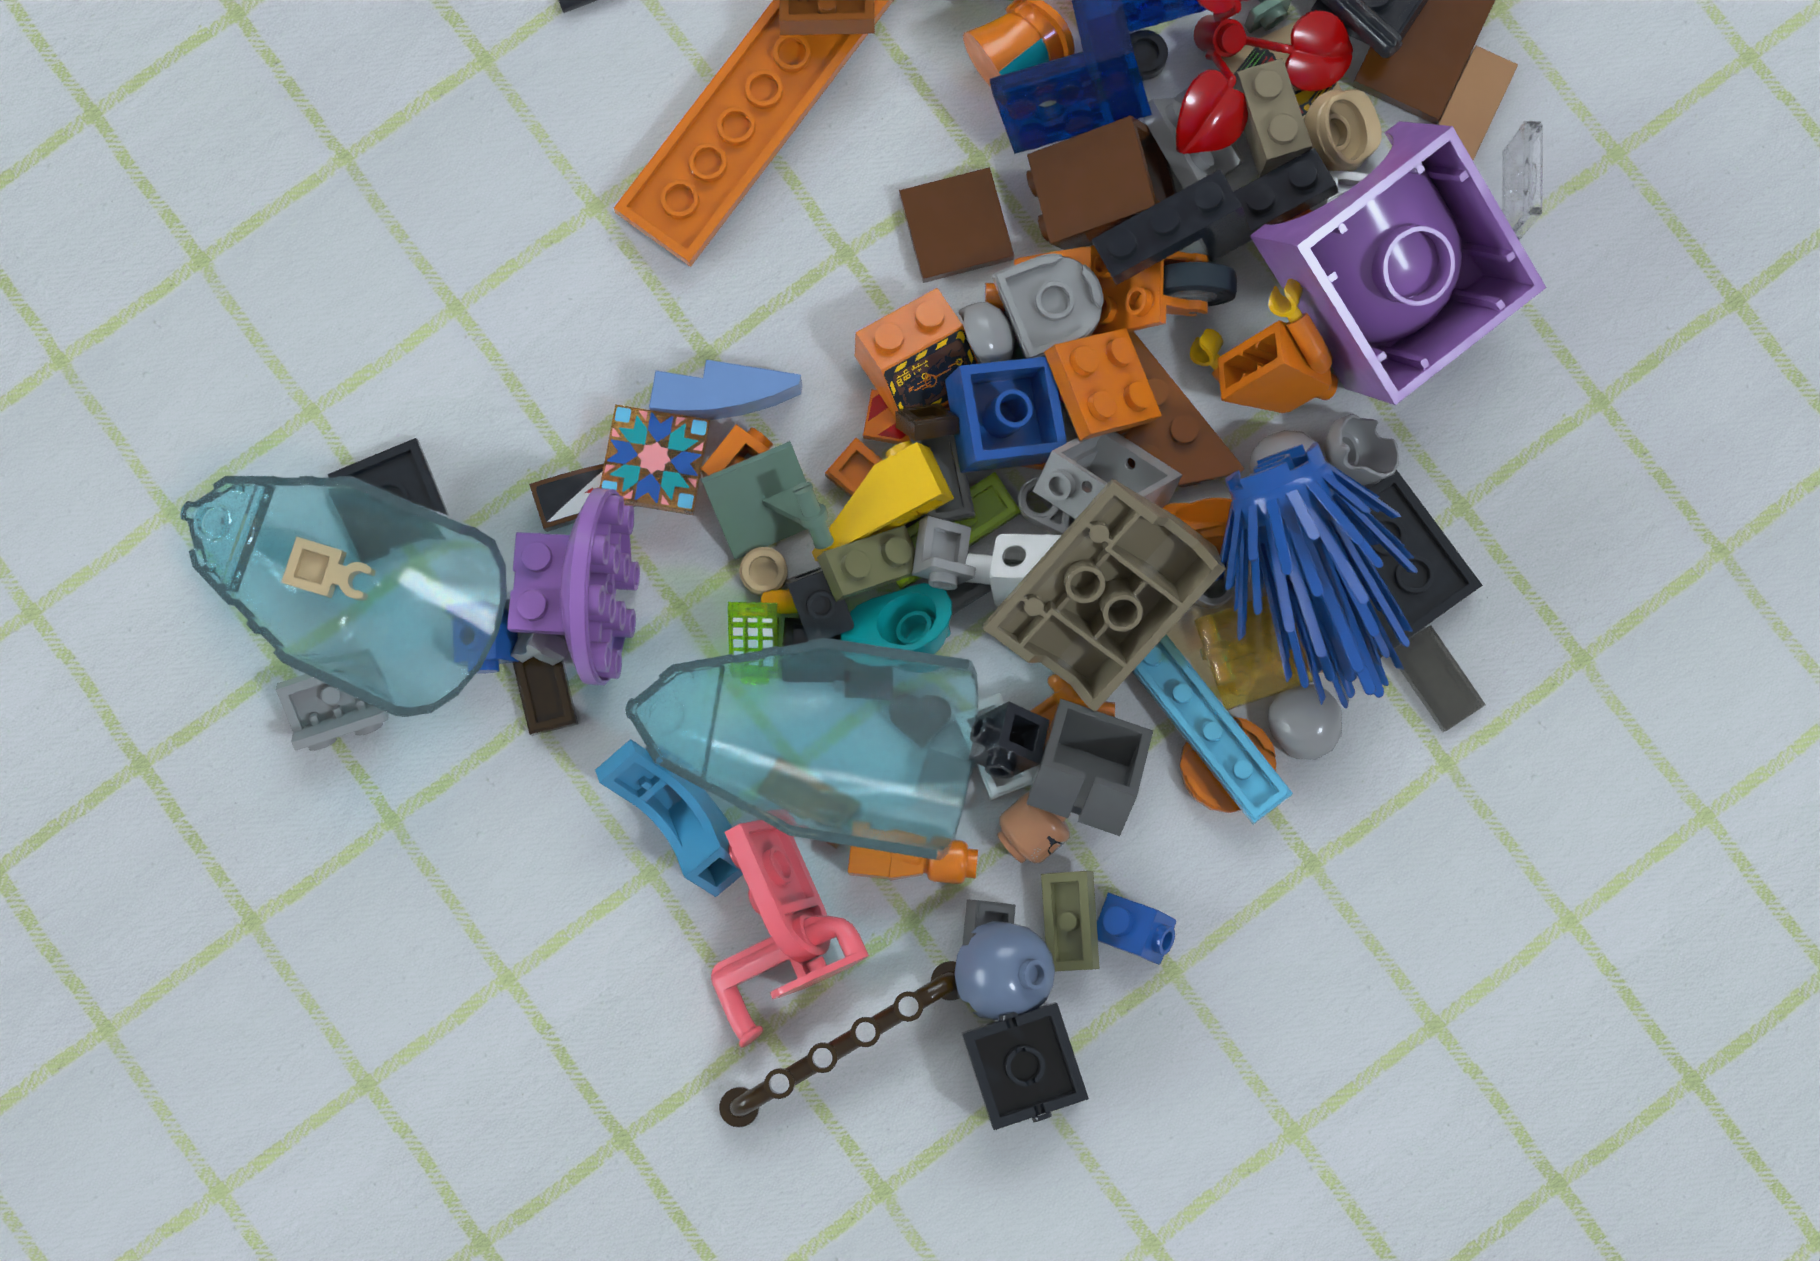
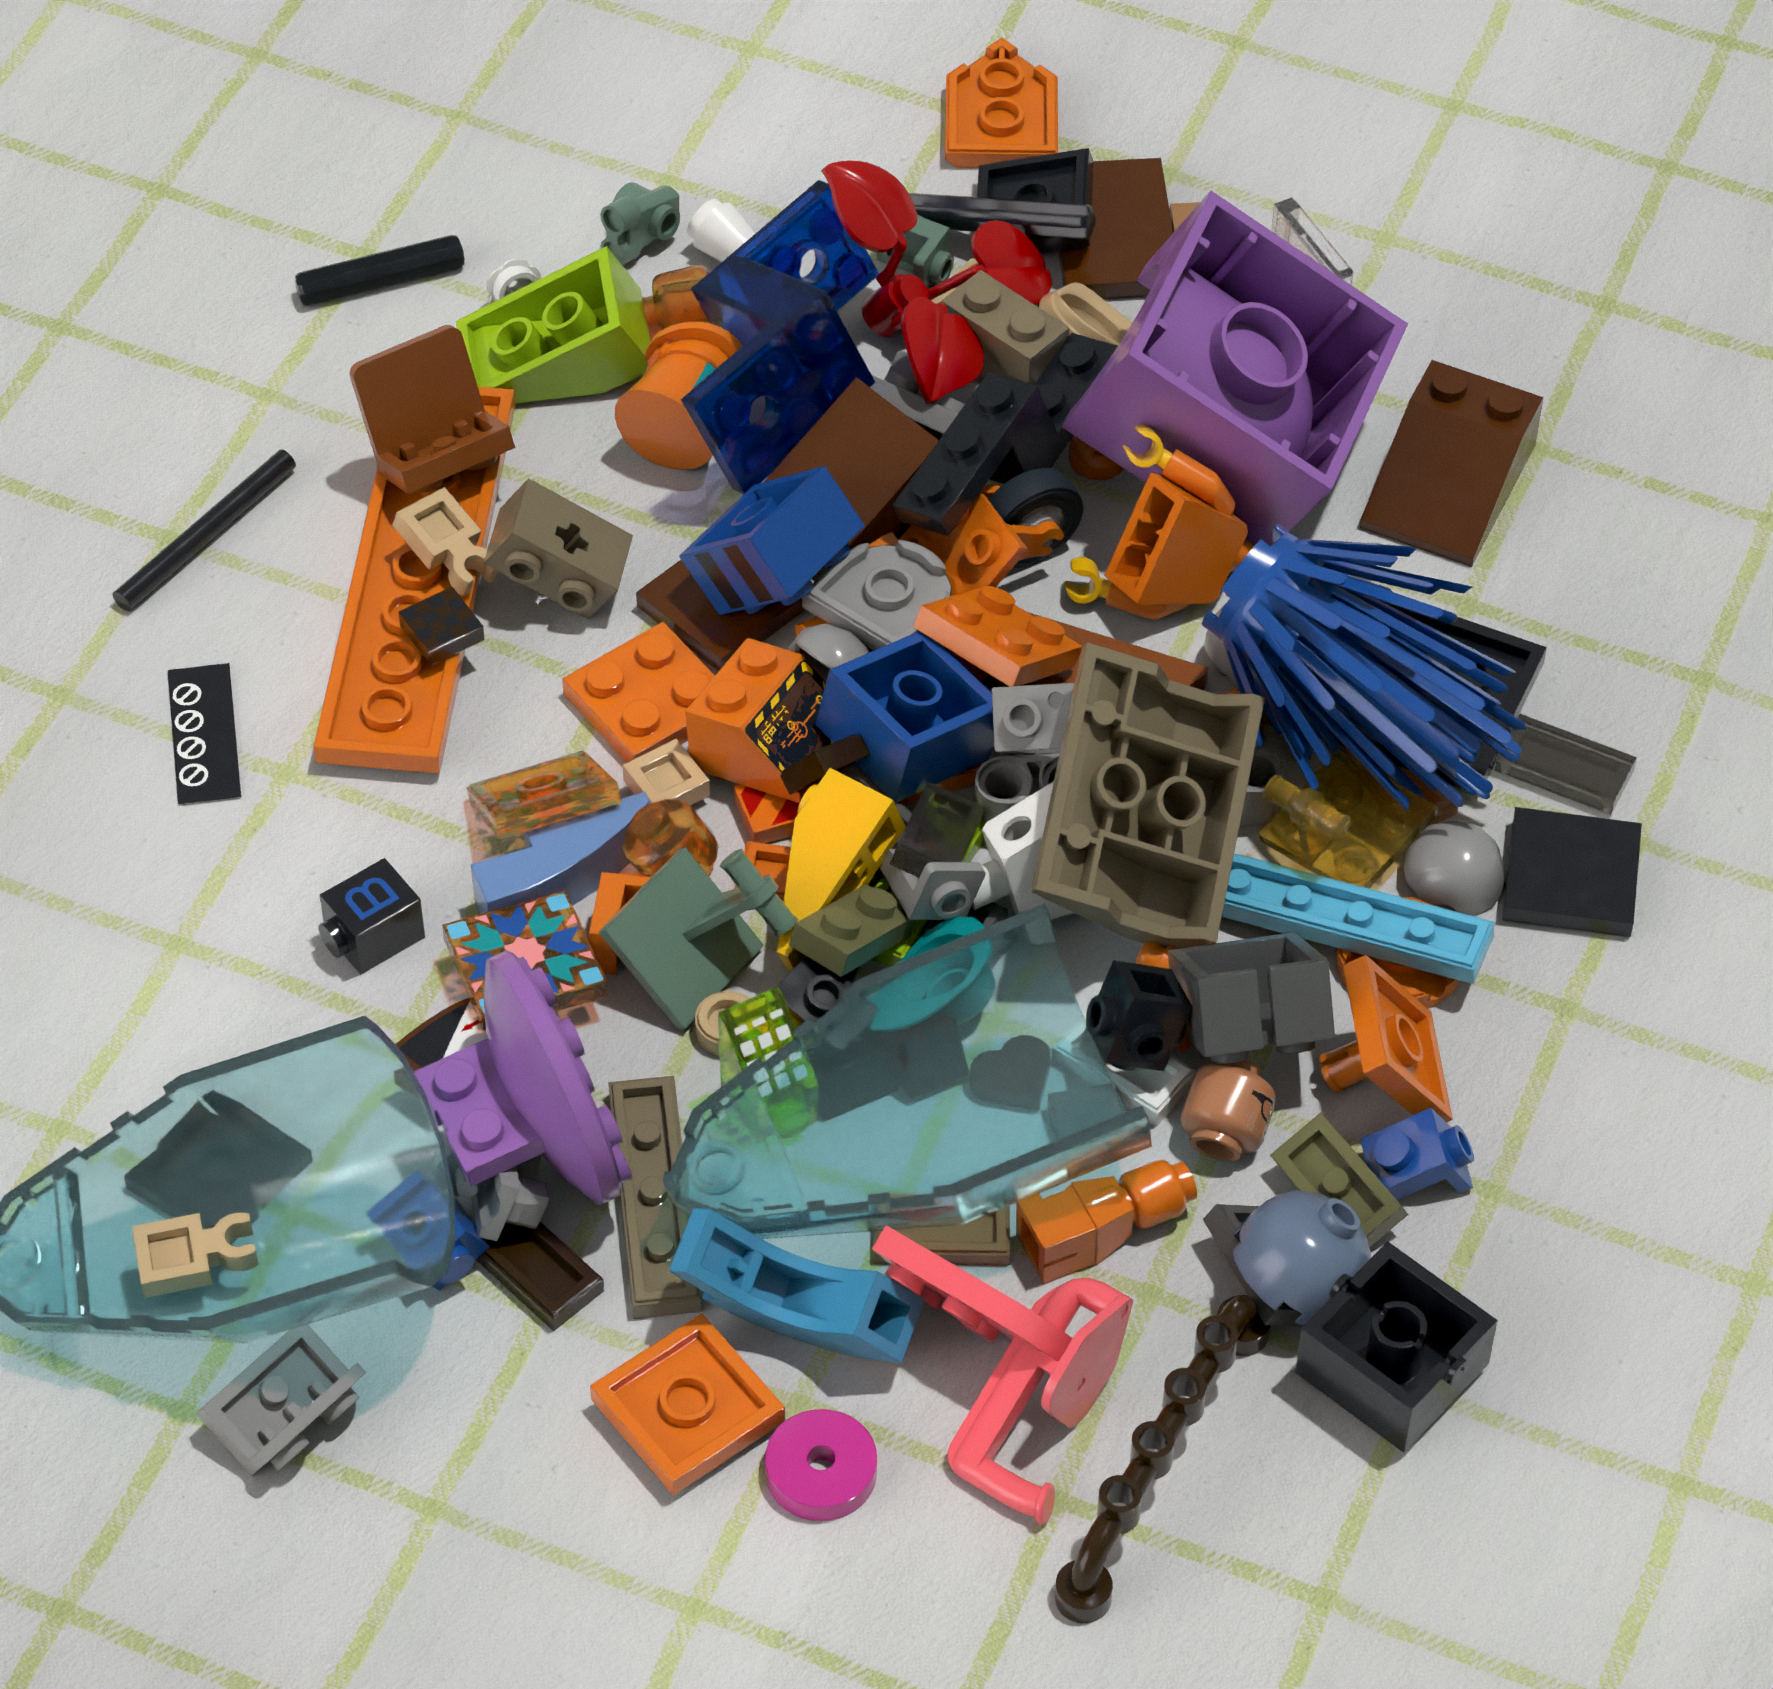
camera: 30 degrees left, 30 degrees down
(559, 144) = (204, 734): none -> black sticker
(575, 843) = (687, 1403): none -> orange plate
(578, 365) = (371, 916): none -> black brick
(612, 934) = (827, 1492): none -> dark pink piece
(652, 651) = (652, 1224): none -> dark tan tile
(738, 334) = (543, 794): none -> clear orange tile
(746, 156) = (441, 625): none -> dark brown tile
(786, 79) = (445, 534): none -> tan plate
(798, 419) = (662, 830): none -> clear orange head
(830, 359) = (667, 774): none -> tan plate
(860, 276) = (639, 691): none -> orange plate
(880, 143) = (558, 549): none -> dark tan brick
(969, 518) = (937, 830): none -> clear smoke tile
(995, 221) = (773, 542): none -> blue brick
(1166, 847) = (1393, 1043): none -> orange tile
(1383, 766) = (1572, 872): none -> black tile
(1522, 392) = (1453, 462): none -> reddish brown slope

